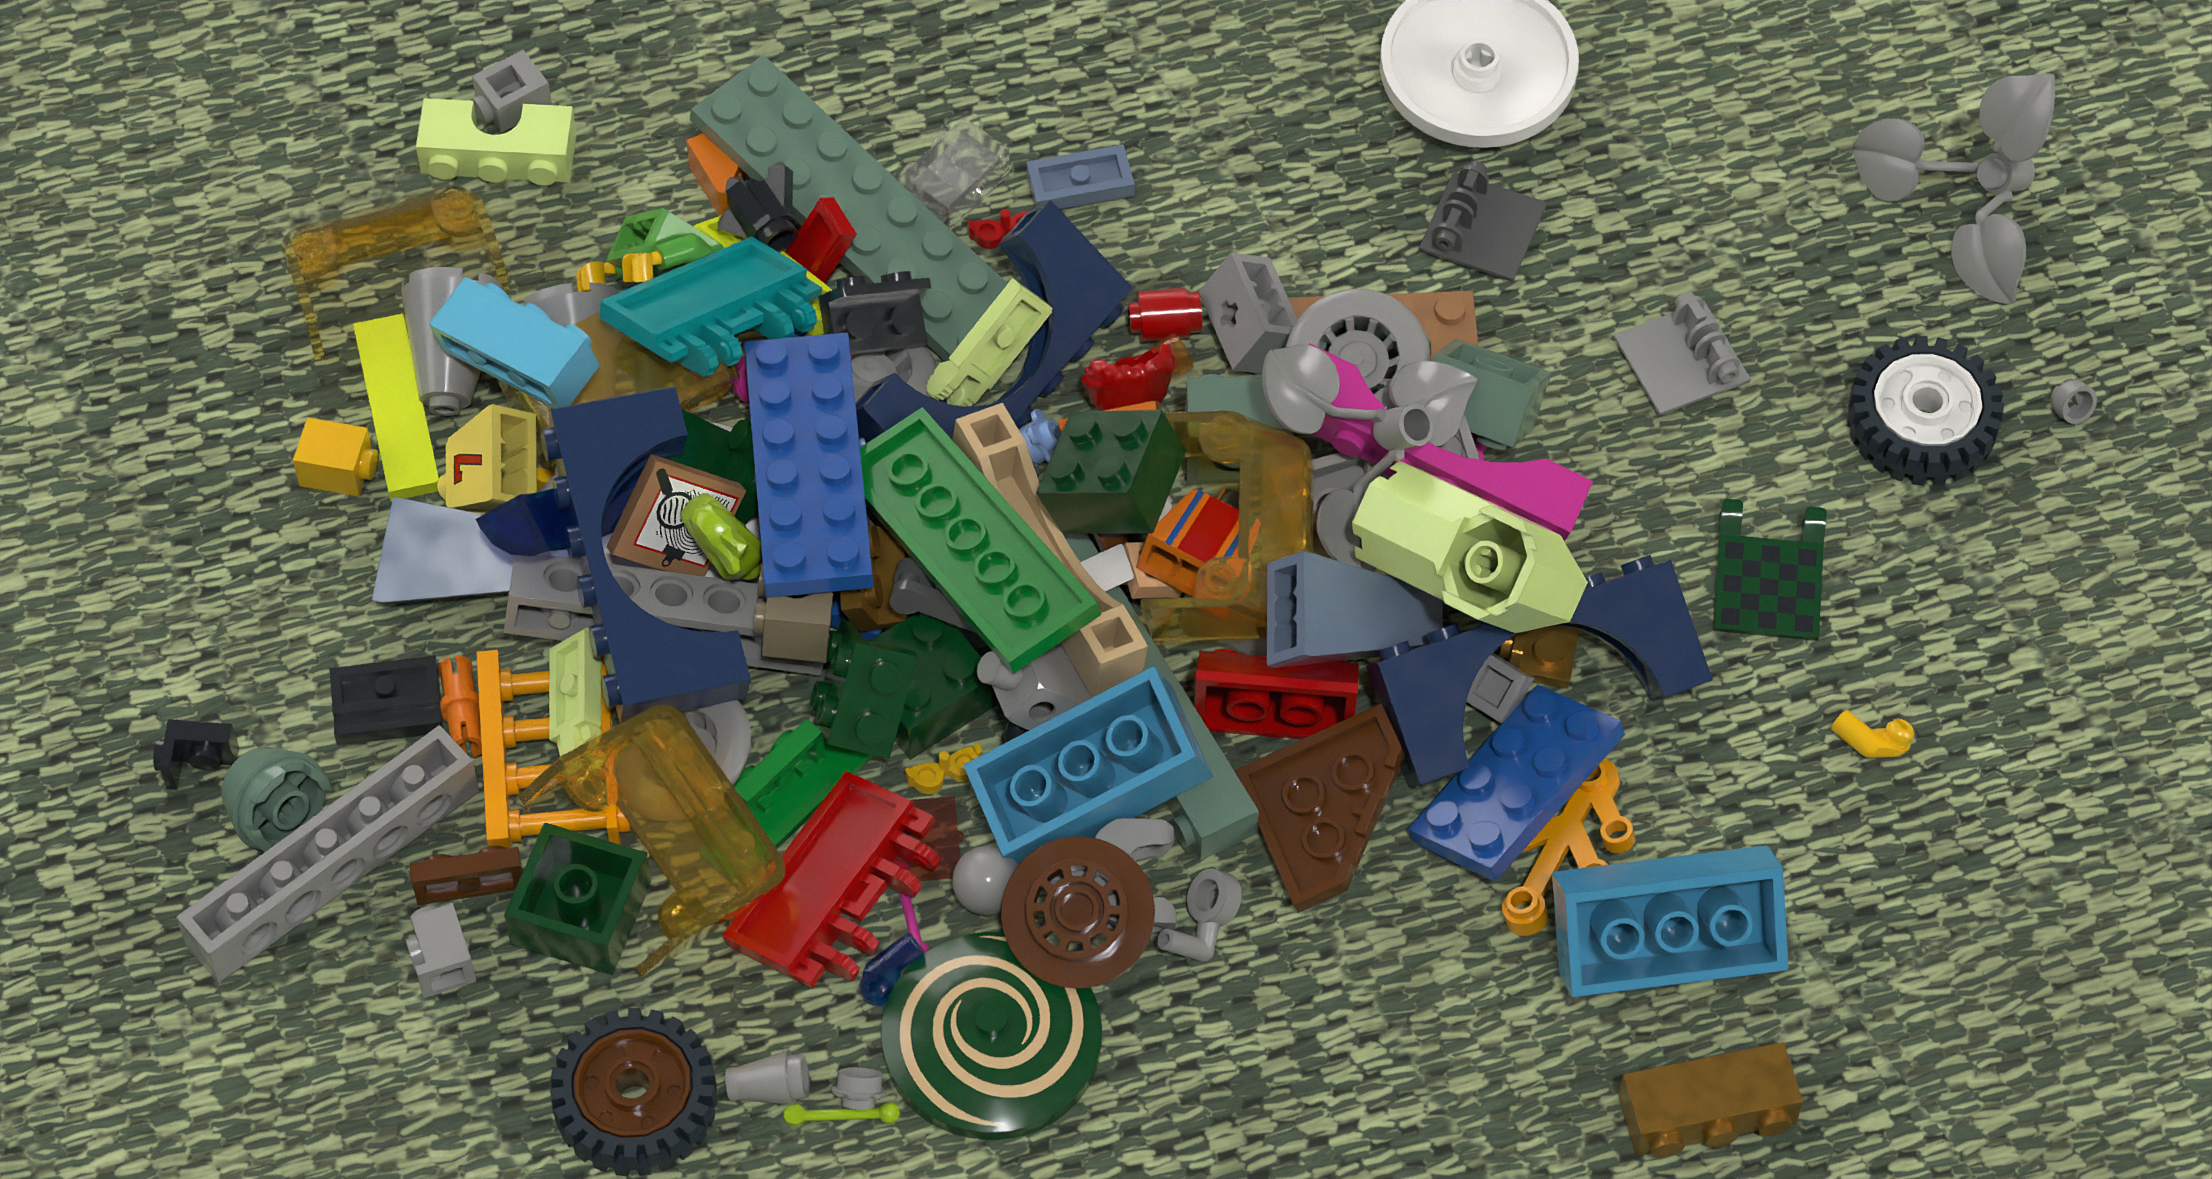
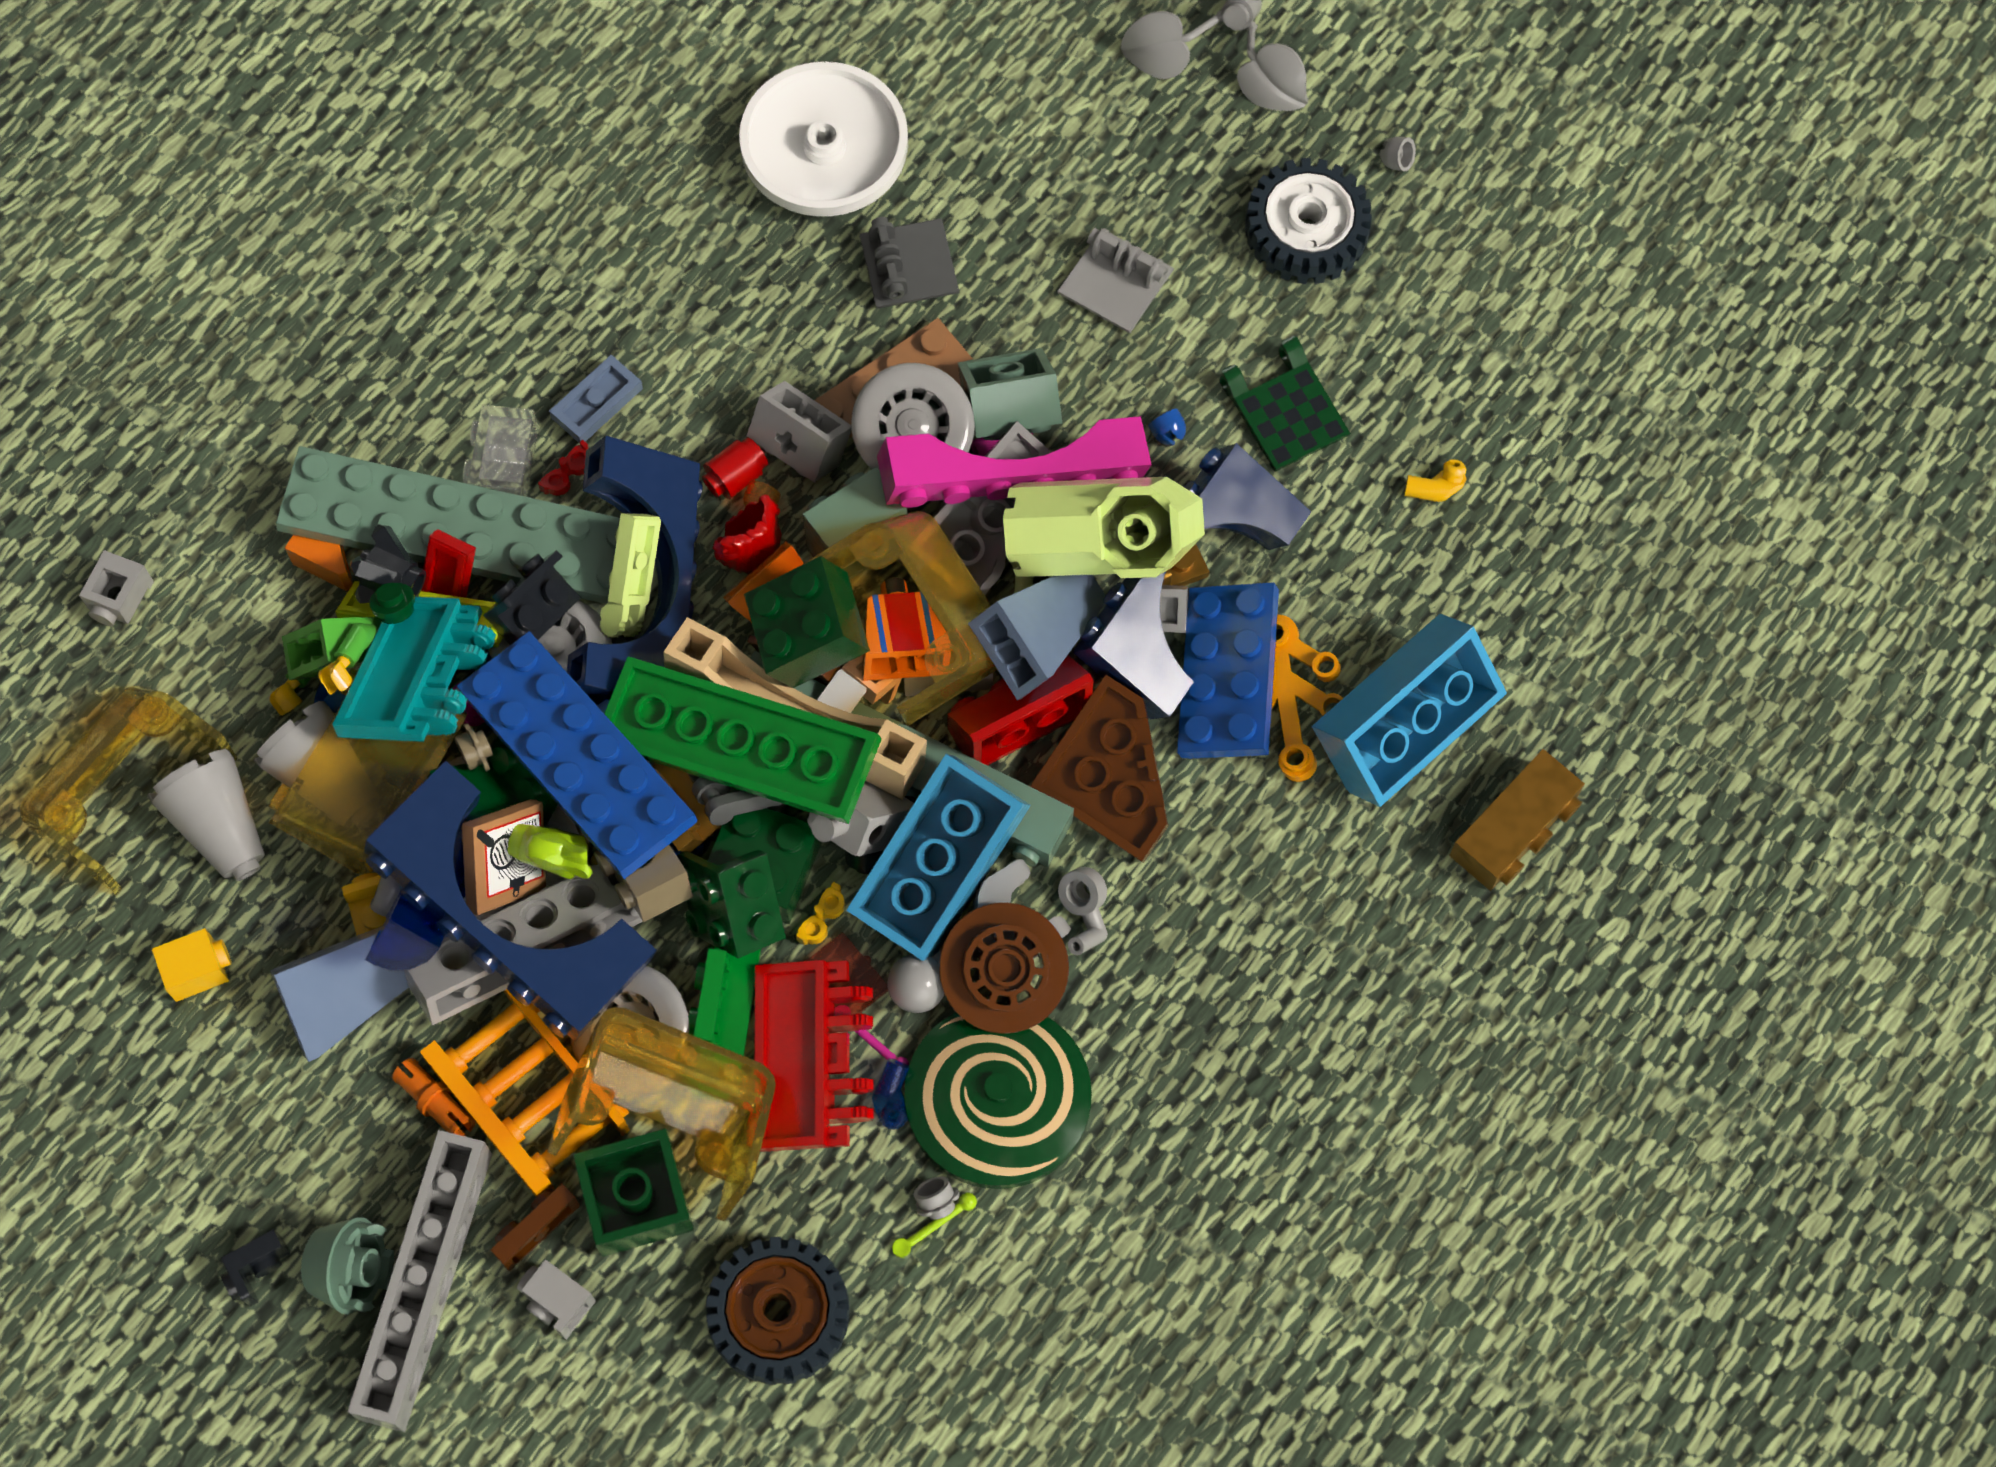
camera: 35 degrees left, 10 degrees up
(385, 700) = (371, 1130): black plate -> none
(396, 407) = (208, 893): neon yellow tile -> none
(490, 460) = (326, 899): light yellow torso -> none
(515, 343) = (284, 796): medium azure brick -> none
(534, 150) = (167, 625): yellowish green arch -> none
(574, 692) = (524, 1042): yellowish green hinge -> none
(720, 408) = (473, 748): none -> dark tan plate
(742, 236) = (392, 602): none -> dark green plate
(772, 1079) = (868, 1235): light grey cone -> none
(1041, 436) = (715, 617): light blue plate -> none
(1428, 404) = (984, 423): light grey plant -> none
(1630, 522) = (1166, 425): none -> blue hinge

